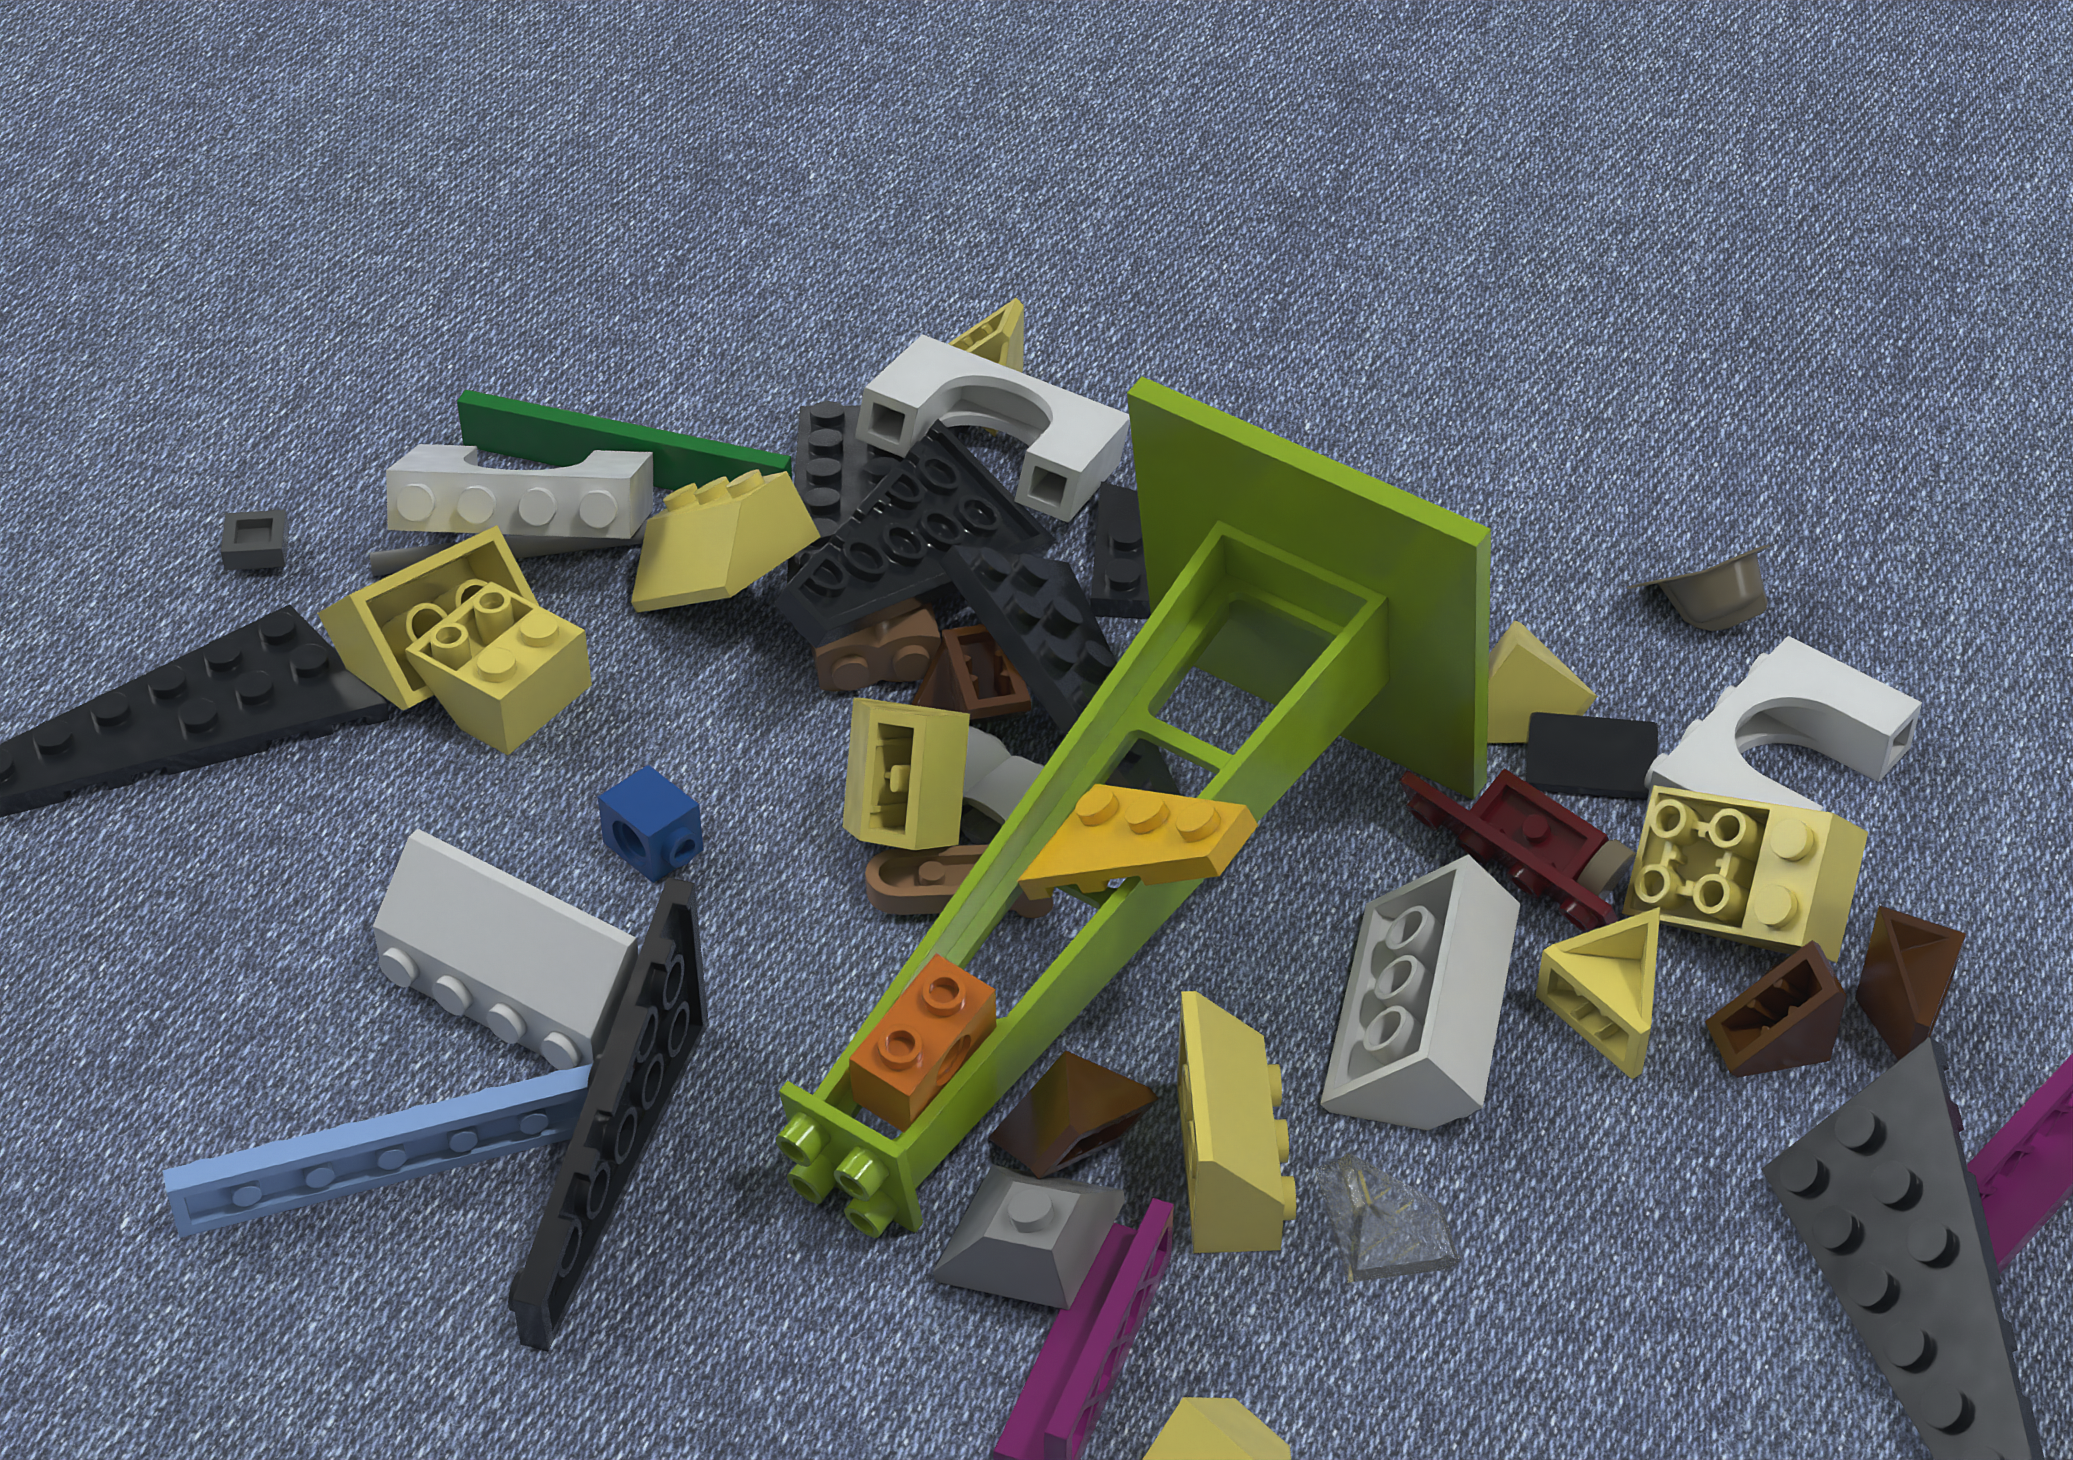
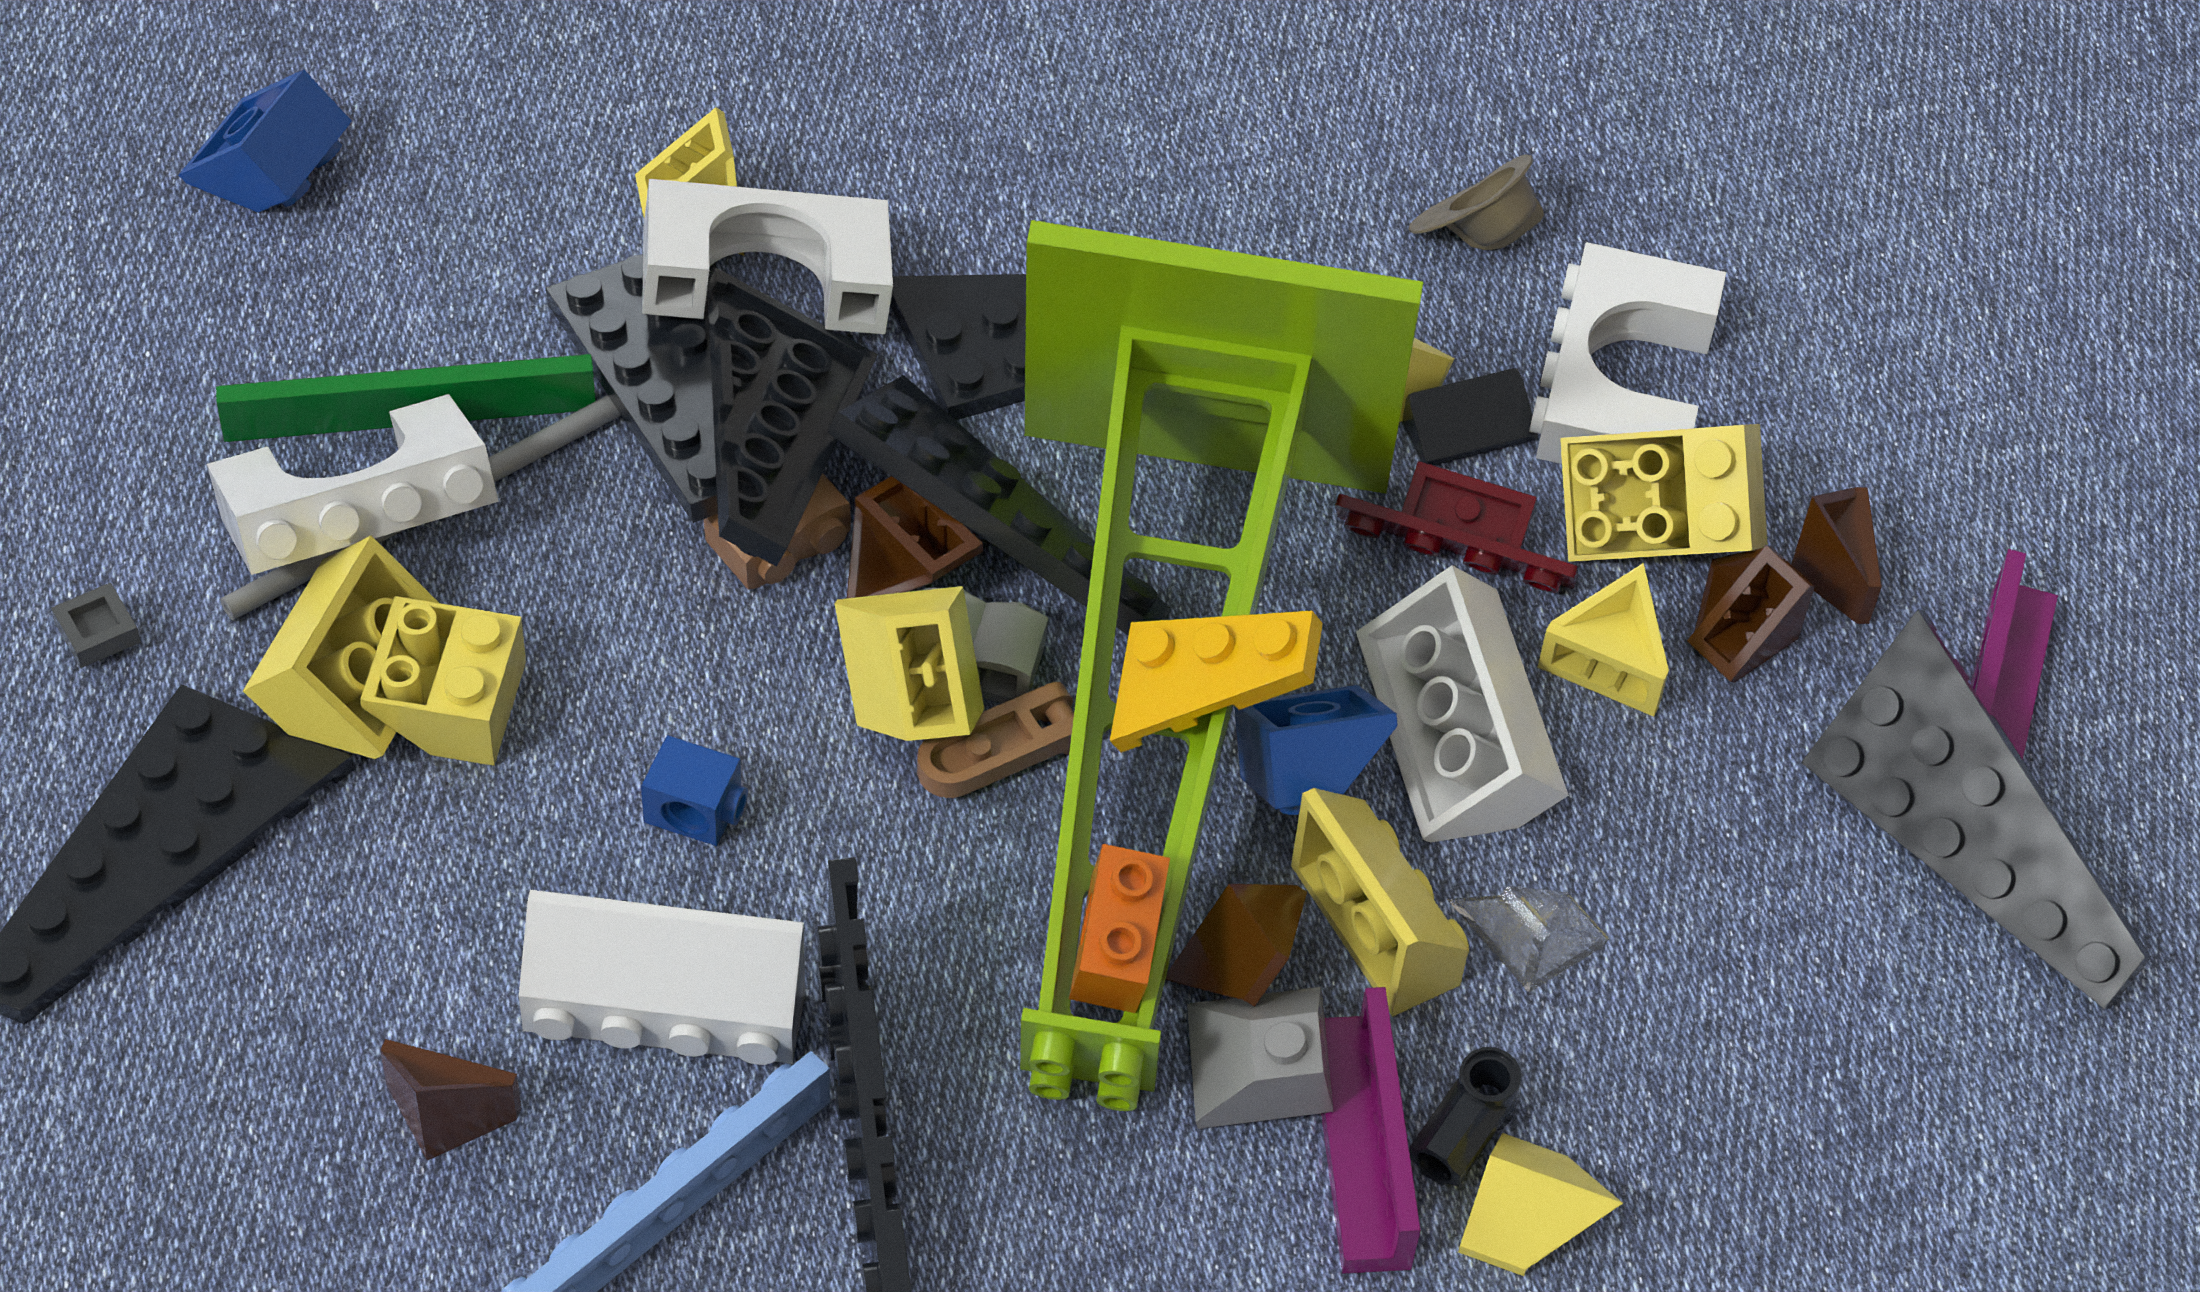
camera: 30 degrees left, 10 degrees up
(264, 993) = (448, 1097): none -> reddish brown slope
(646, 239) = (270, 145): none -> blue slope
(719, 539) = (593, 479): light yellow slope -> none
(1202, 1362) = (1467, 1118): none -> black piece
(1234, 961) = (1310, 742): none -> blue slope
(1606, 868) = (1545, 527): dark tan tile -> none

